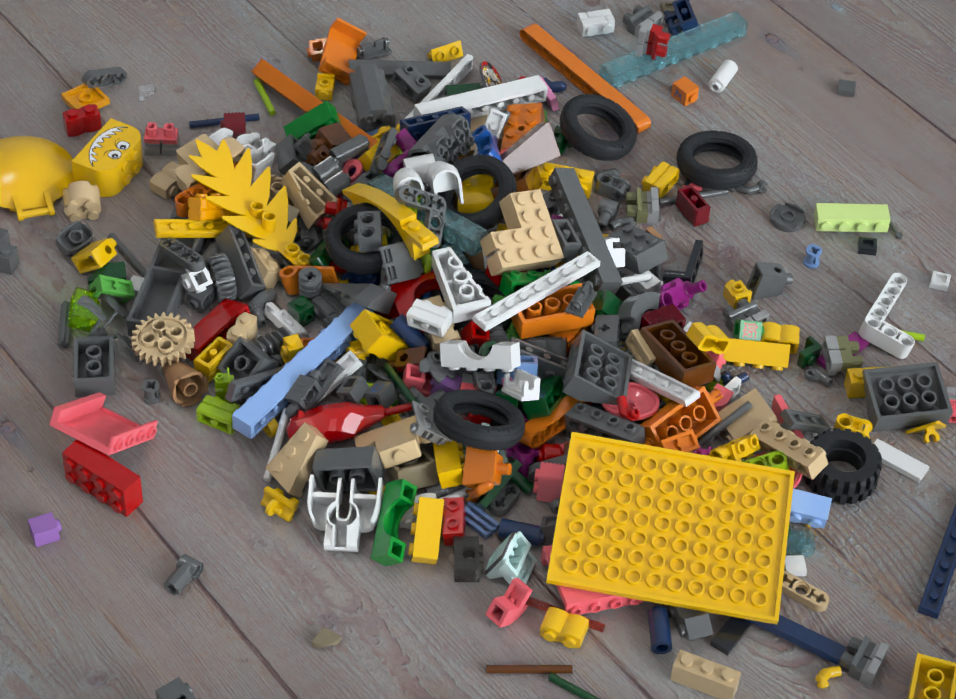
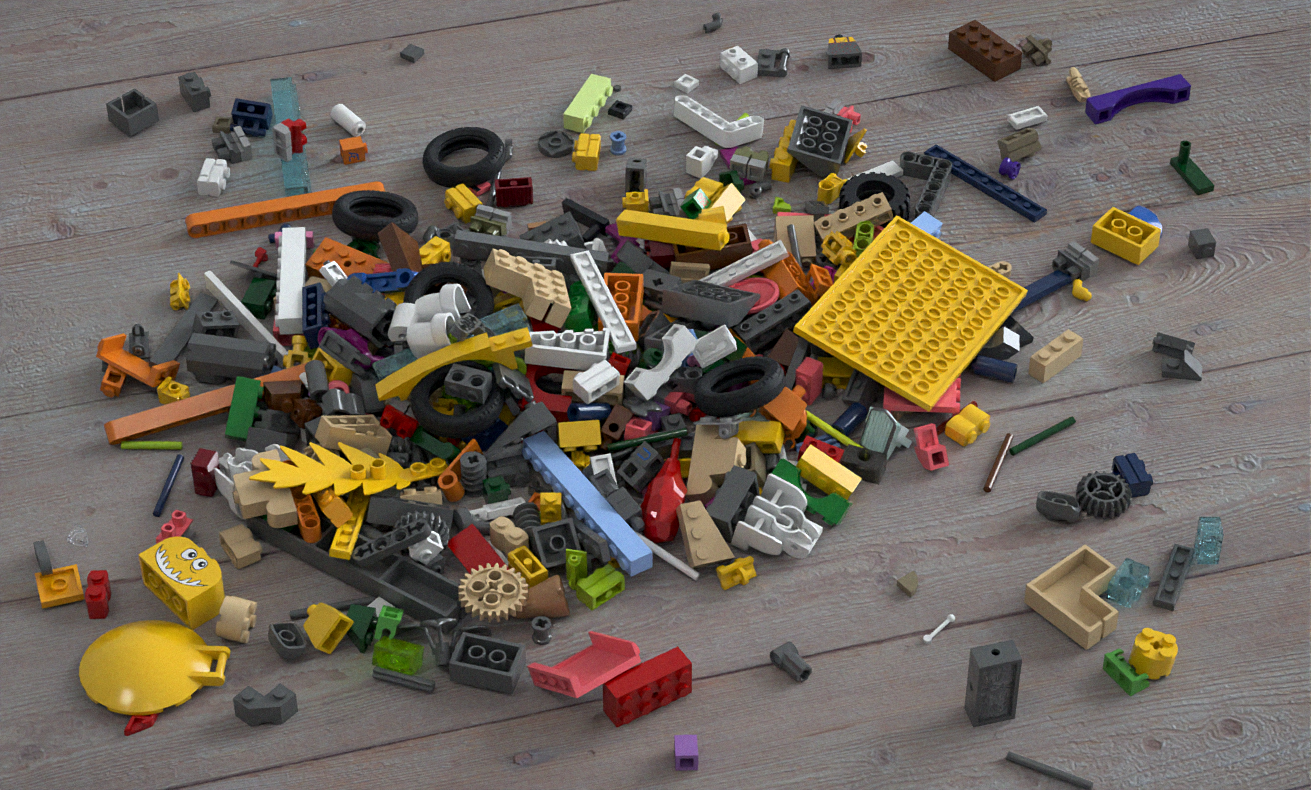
camera: 65 degrees left, 5 degrees down
(261, 673) = (928, 638): none -> white hinge
(495, 525) = (830, 430): none -> neon yellow bar
(581, 300) = (633, 276): dark grey hinge -> none
(628, 413) = (772, 295): red arm -> none
(673, 314) = (672, 229): none -> yellow brick
(785, 239) = (587, 152): none -> yellow brick
(804, 400) = (780, 206): none -> lime tile
(821, 321) = (700, 160): none -> white brick
(905, 511) = (929, 168): none -> dark grey beam

